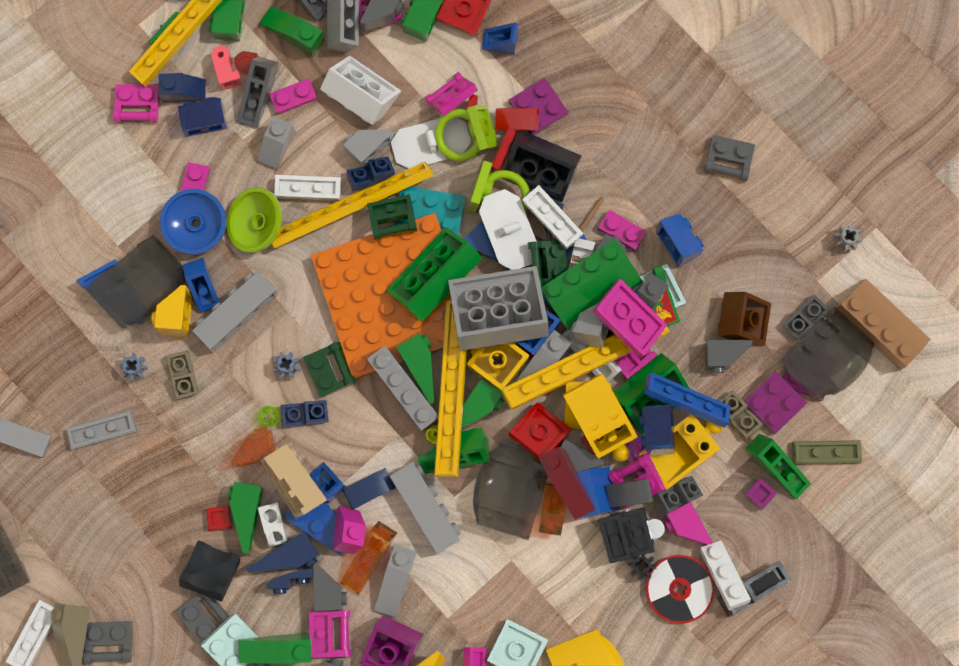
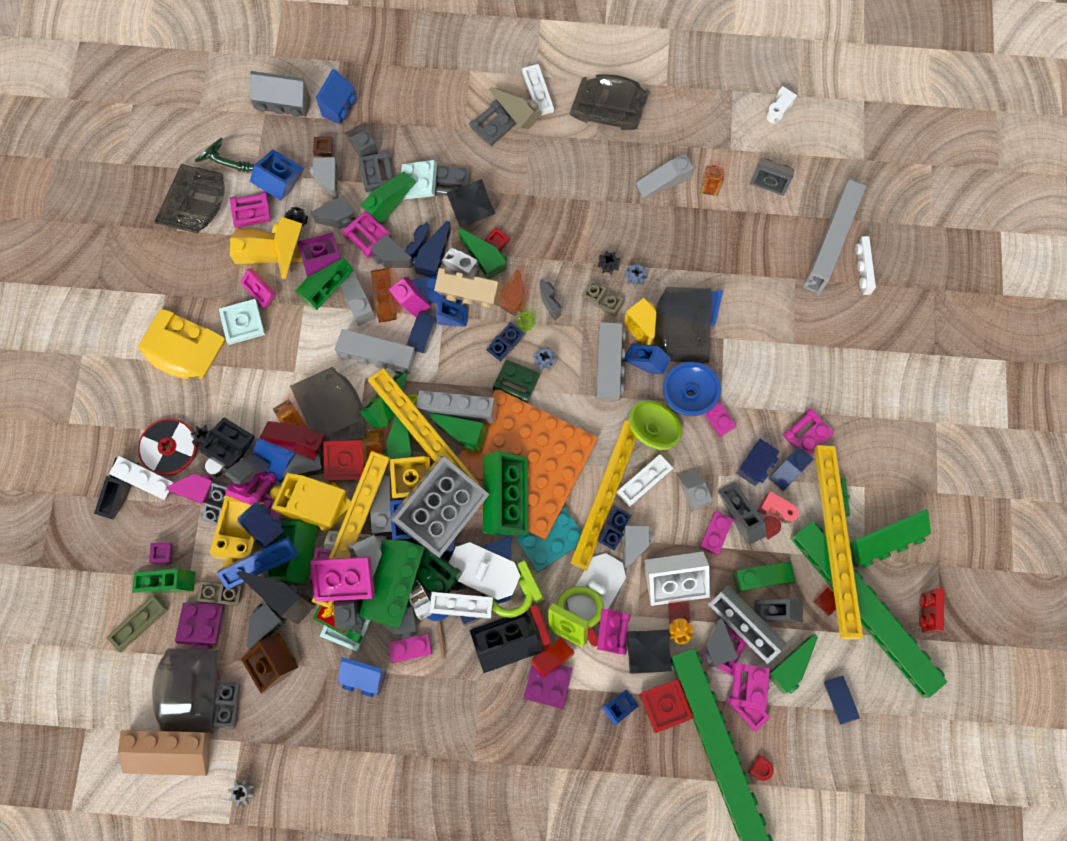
camera: 135 degrees right, 5 degrees down
(101, 430) = (617, 226): light grey tile -> none
(140, 397) = (608, 257): none -> black gear
(227, 421) = (547, 295): none -> dark grey slope
(385, 65) = (677, 611): none -> clear red tile
(389, 211) = (573, 512): dark green plate -> none
(398, 48) = (680, 631): none -> light orange gear
(416, 616) = (322, 284): none -> green slope
(438, 56) = (649, 651): none -> black brick
(504, 420) = (373, 442): none -> clear orange slope
(692, 352) = (286, 600): none -> black slope
(730, 151) = (381, 781): dark grey plate -> none

